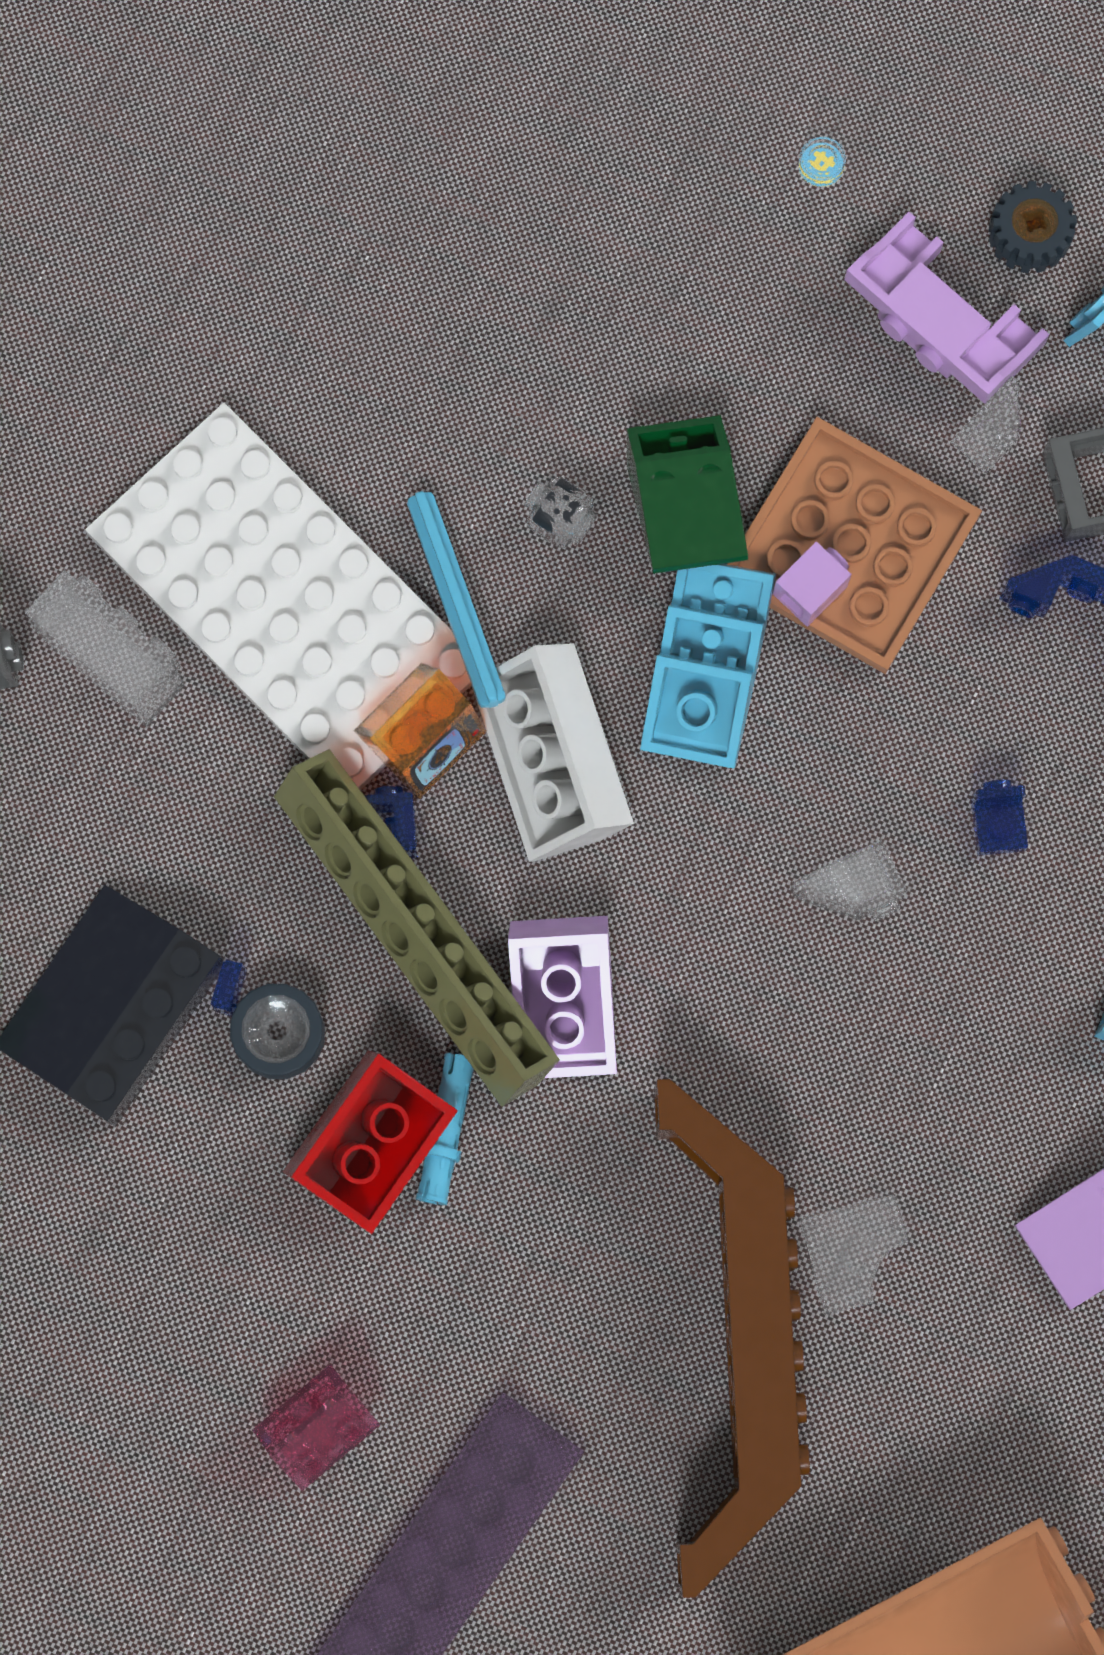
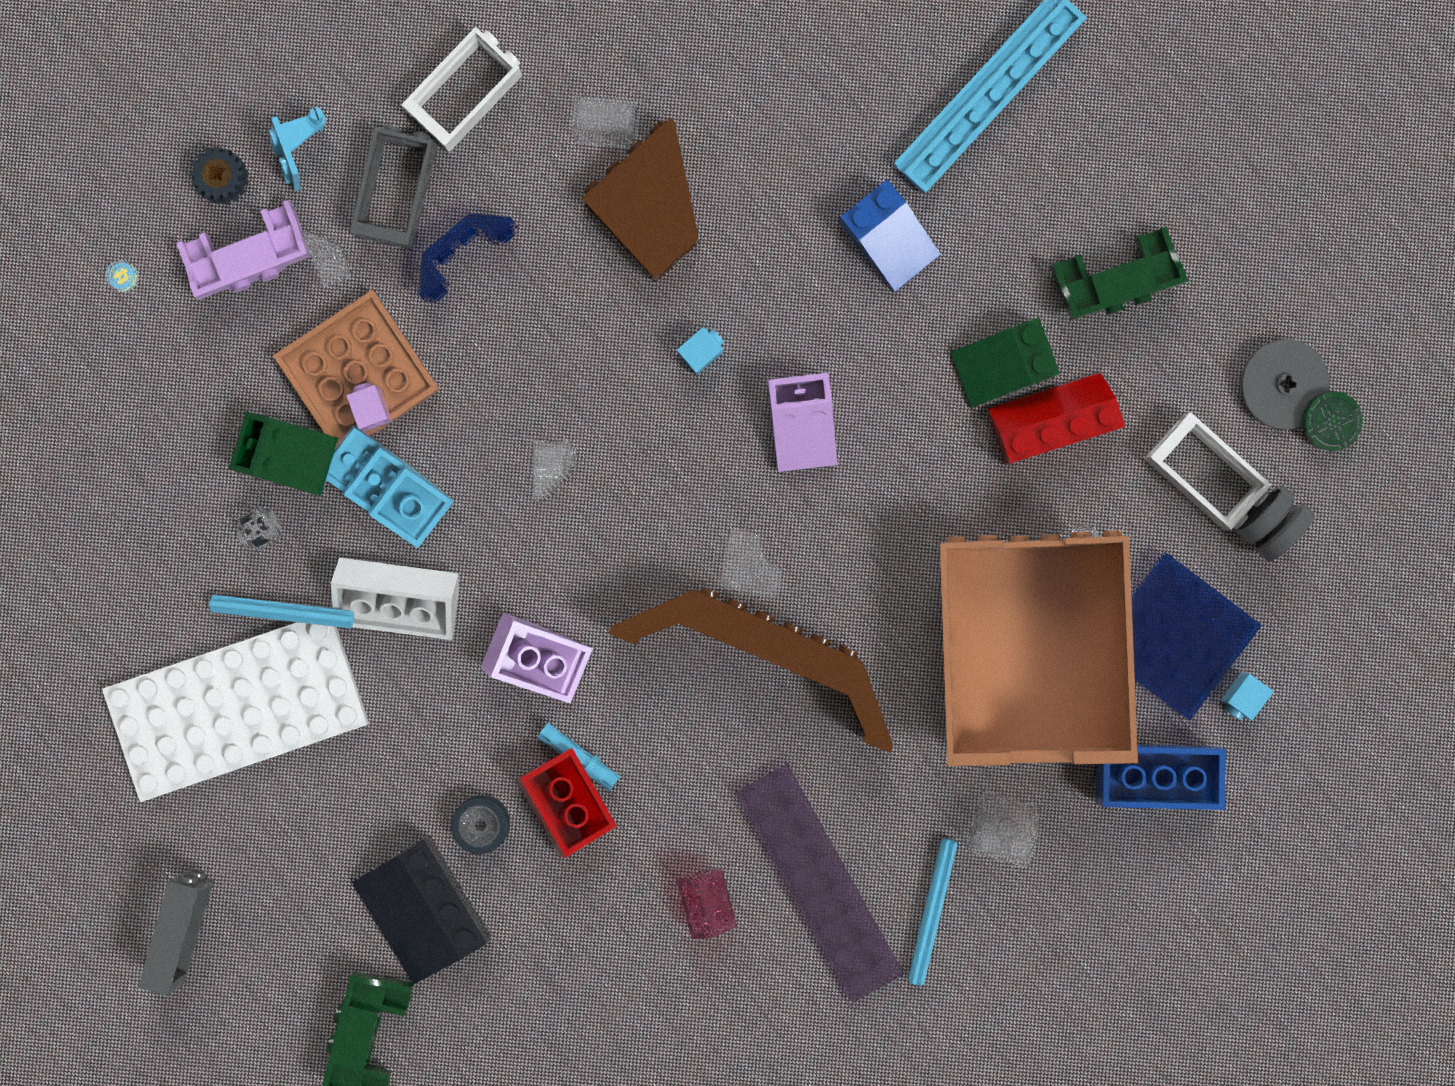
camera: 65 degrees left, 10 degrees up
(107, 646) = (215, 822): clear piece -> none
(228, 987) = (443, 840): clear blue tile -> none
(403, 824) = (399, 703): clear blue bracket -> none
(416, 927) = (458, 723): olive brick -> none
(421, 728) = (348, 666): clear orange slope -> none
(999, 818) = (552, 367): clear blue bracket -> none

